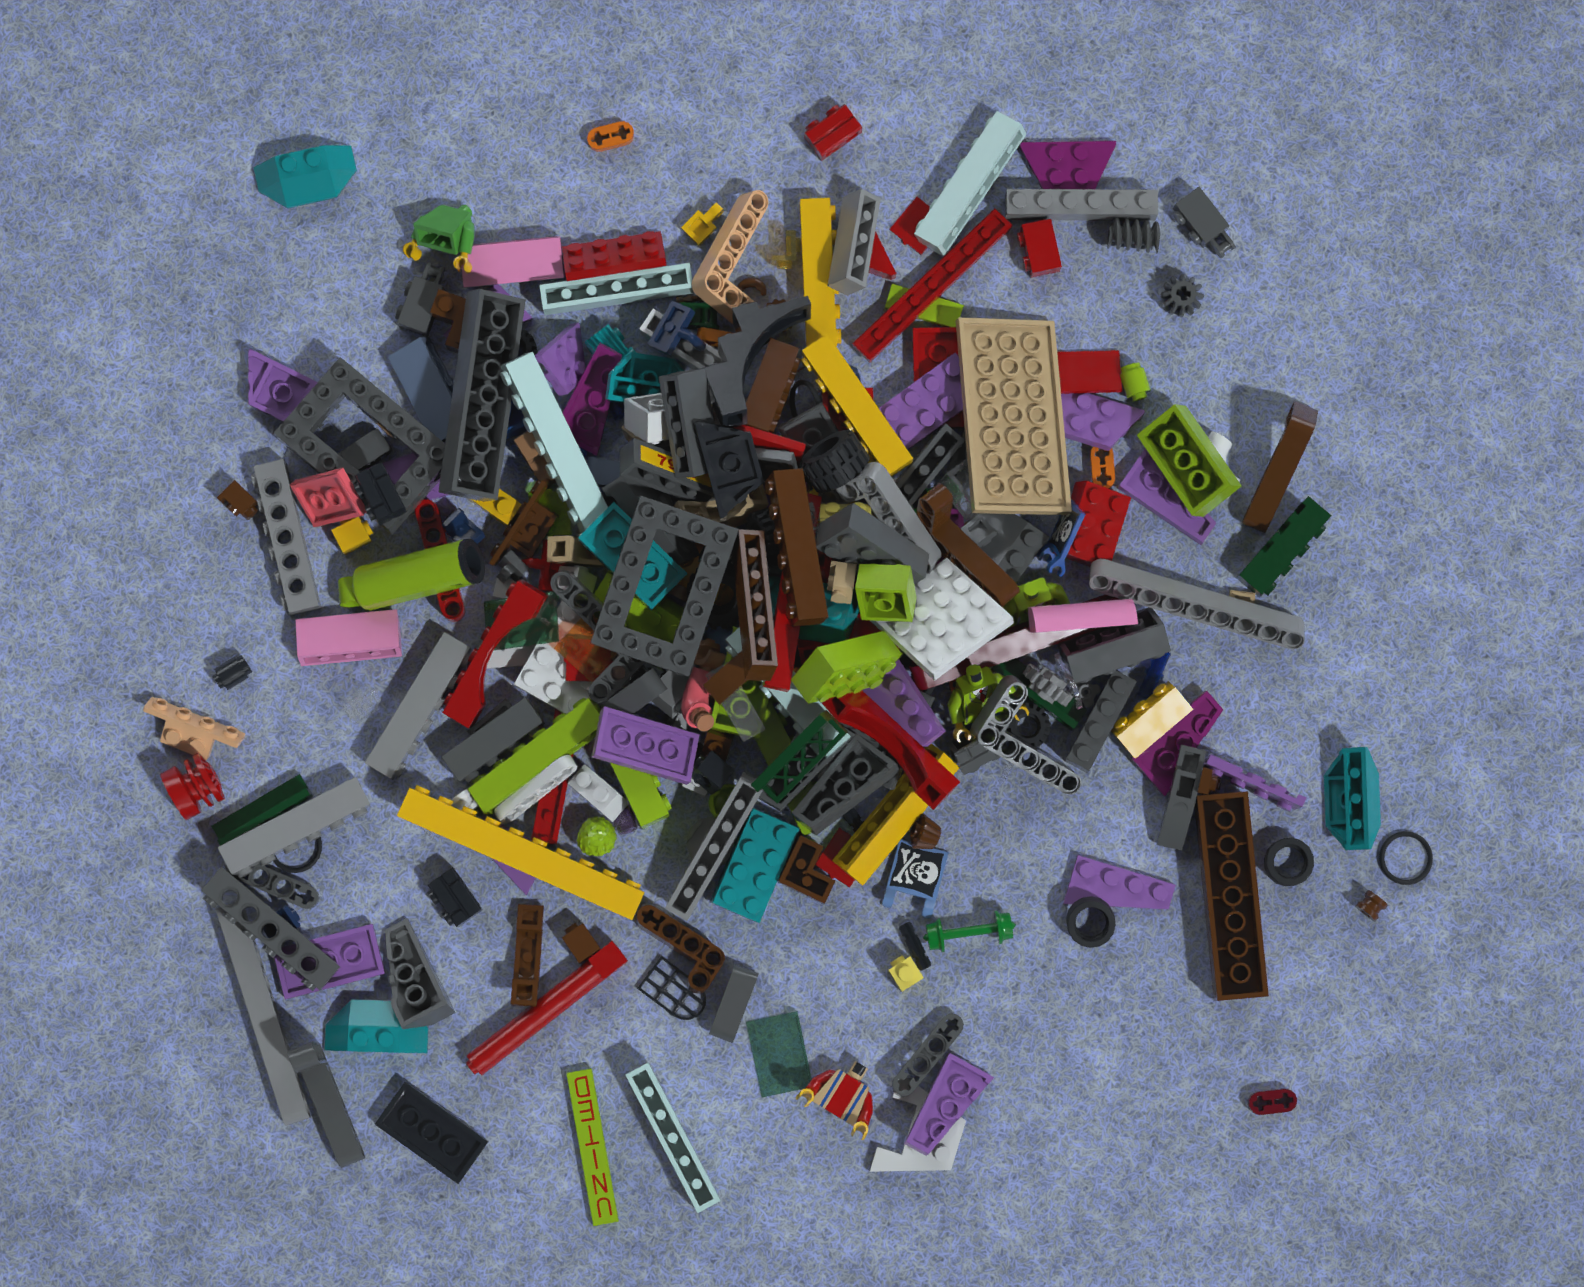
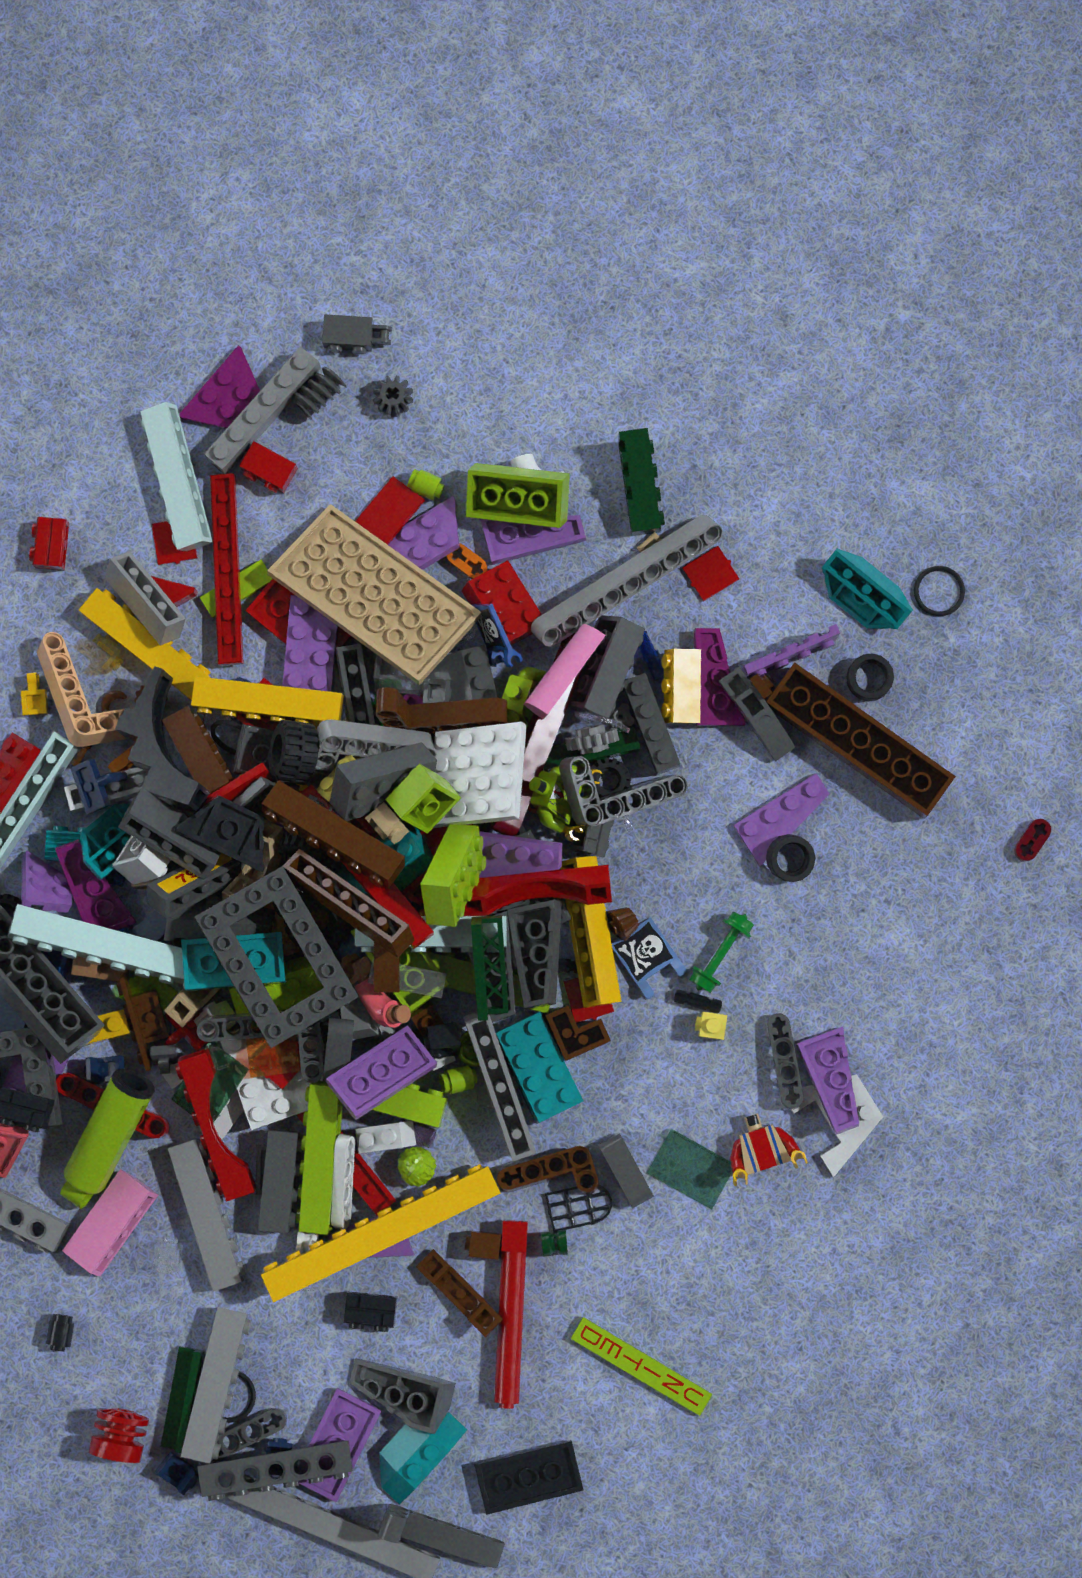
camera: 40 degrees left, 0 degrees up
(191, 731) = (76, 1401): light nougat bracket -> none
(202, 857) = (177, 1473): none -> dark blue bracket
(352, 534) = (36, 1154): yellow brick -> none
(625, 992) = (548, 1245): none -> dark green wheel
(673, 1137) = (685, 1301): light aqua brick -> none
(691, 811) = (458, 1079): none -> lime brick
(700, 317) = (101, 758): dark green piece -> none
(1261, 665) = (710, 573): none -> red piece
(1282, 465) = (566, 399): reddish brown beam -> none
(1371, 905) = (952, 645): reddish brown wheel -> none

